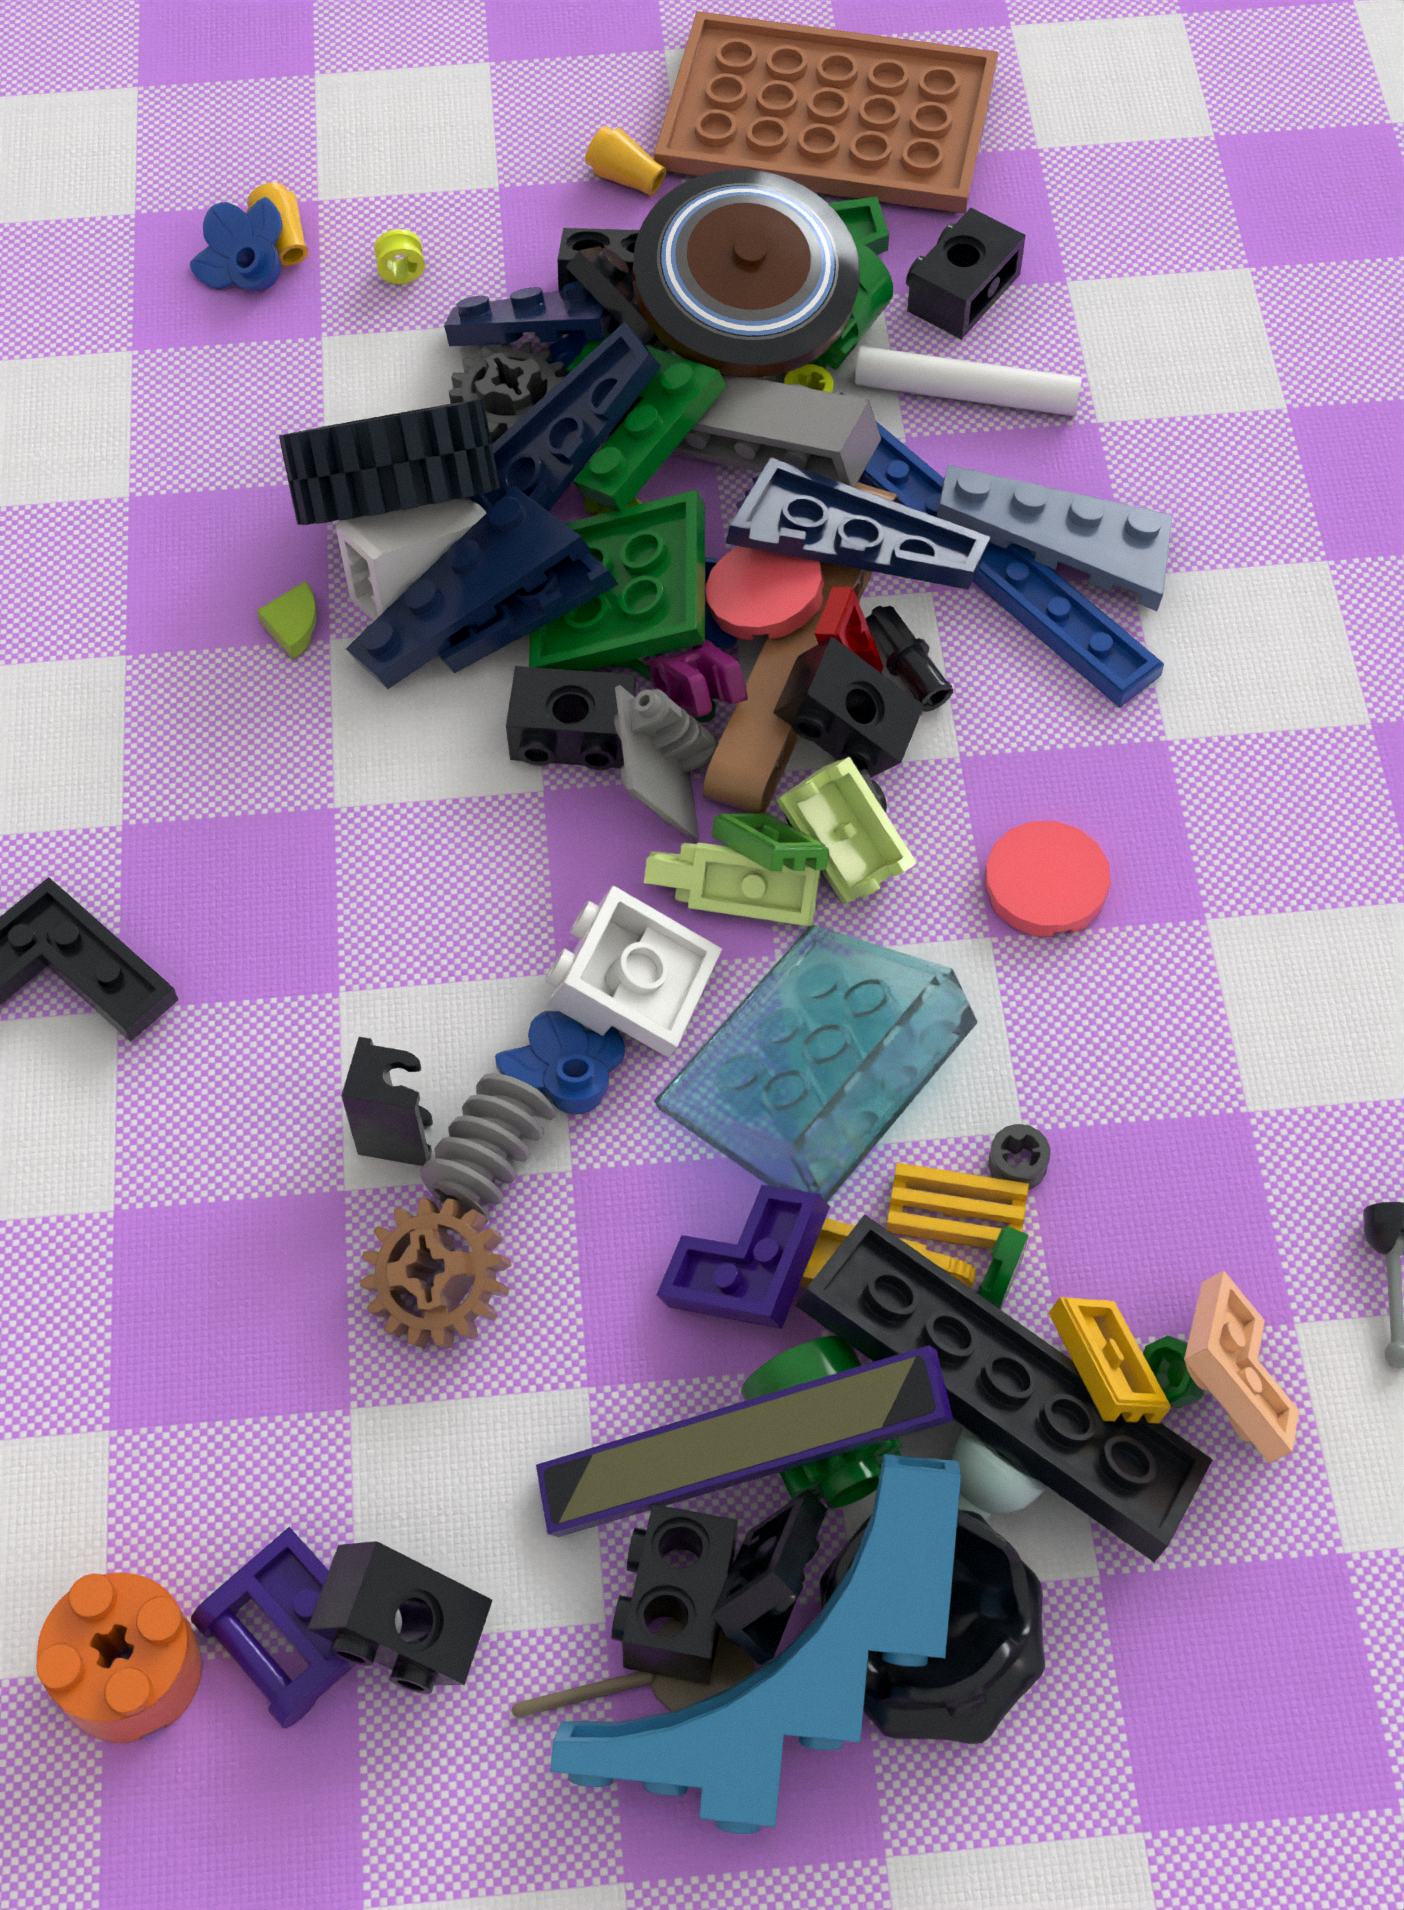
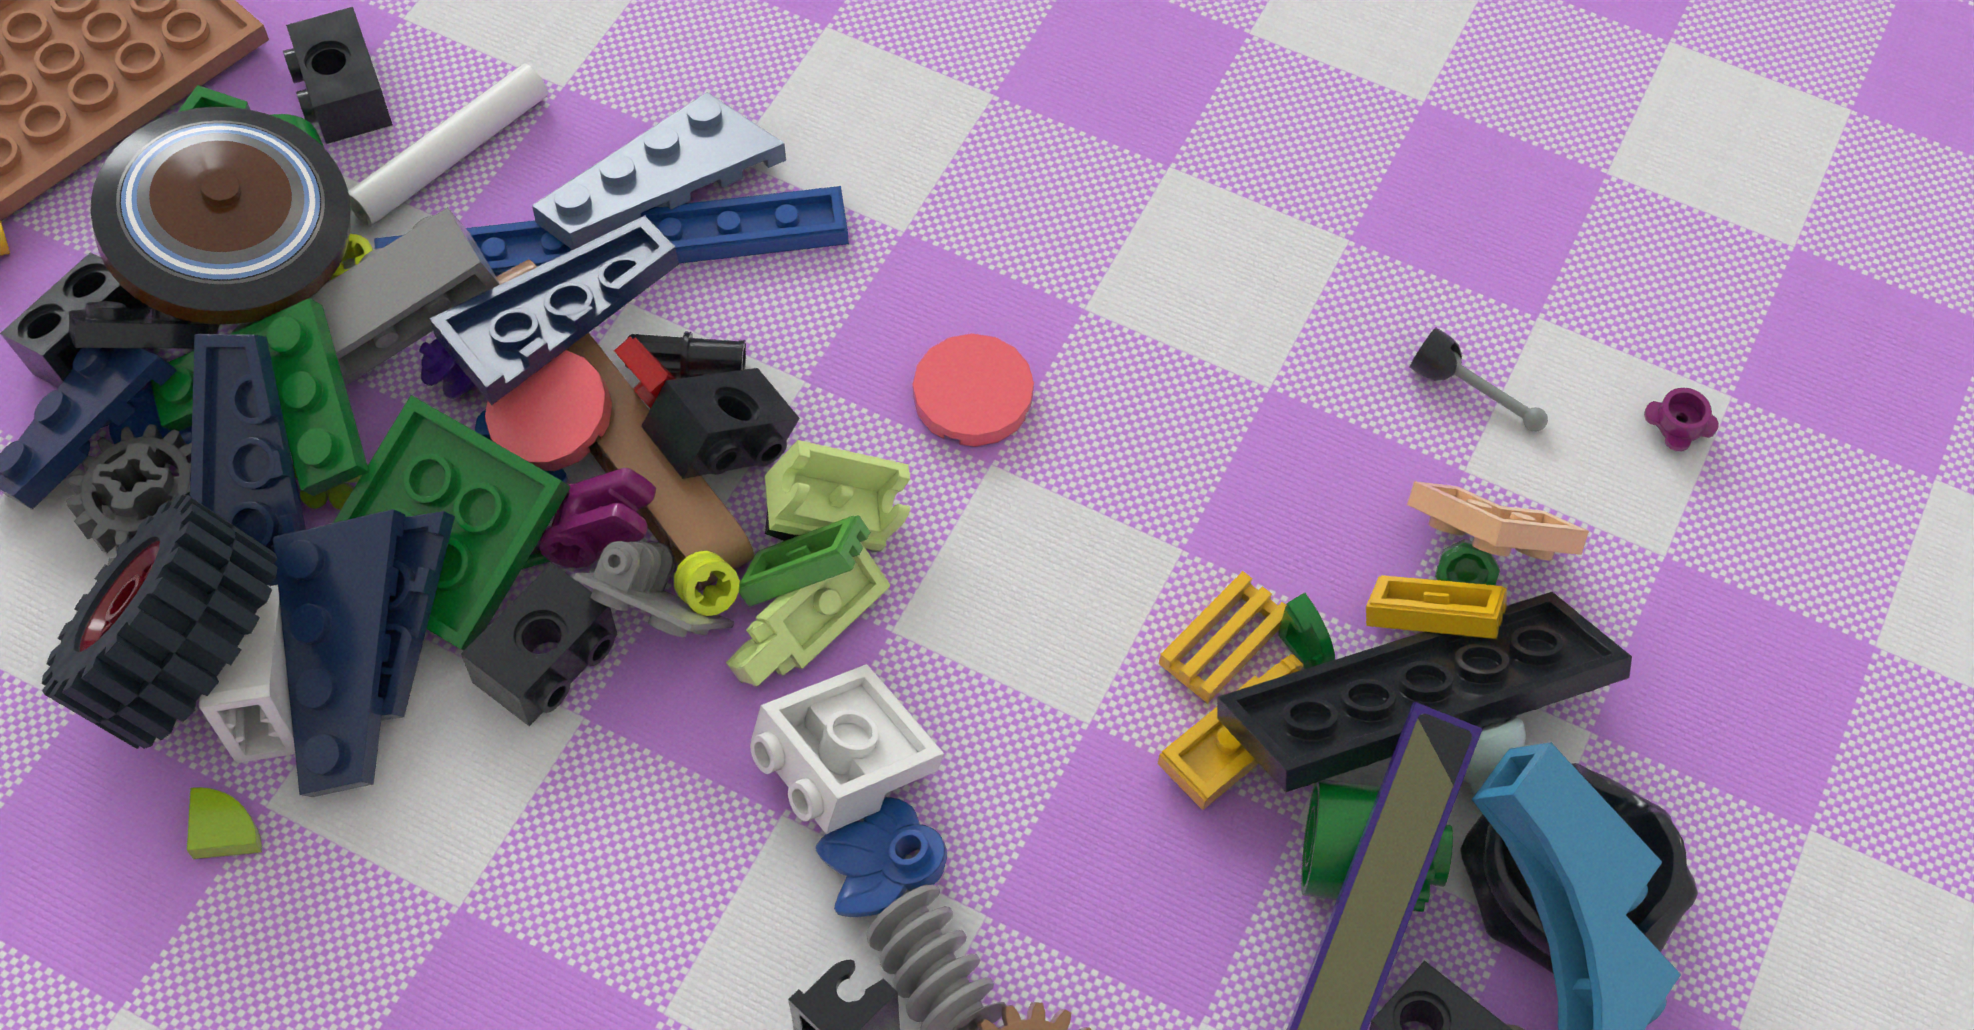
camera: 60 degrees left, 0 degrees up
(699, 771) = (715, 597): none -> neon yellow bush
(757, 1275) = (1208, 819): dark purple plate -> none
(769, 1577) = (1492, 957): black bracket -> none
(820, 1060) = (1026, 656): clear light blue slope -> none
(1015, 1139) = (1216, 546): dark grey bush -> none

